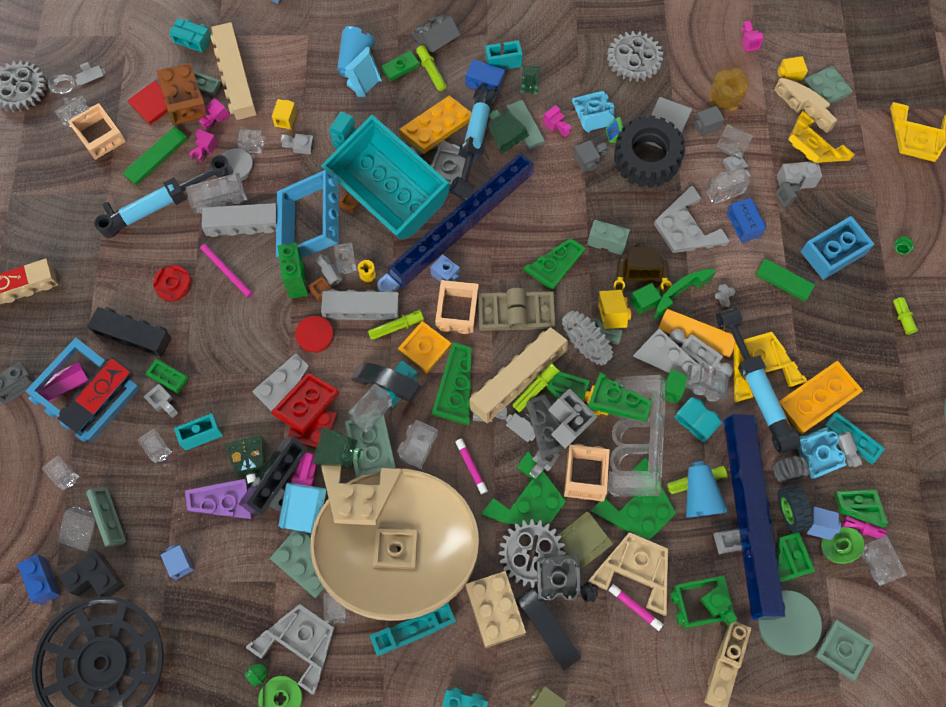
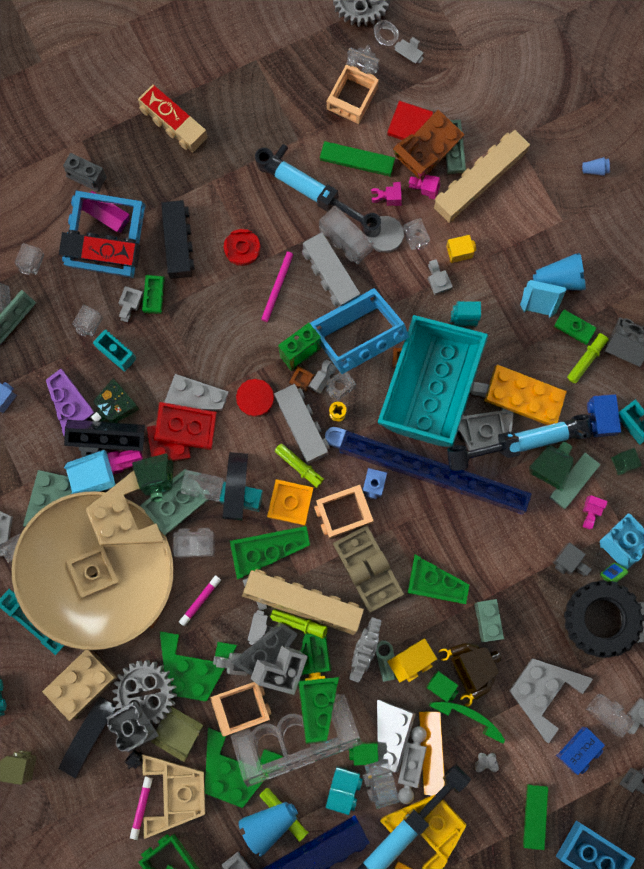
camera: 65 degrees right, 10 degrees up
(190, 35) = (499, 115): teal brick -> none

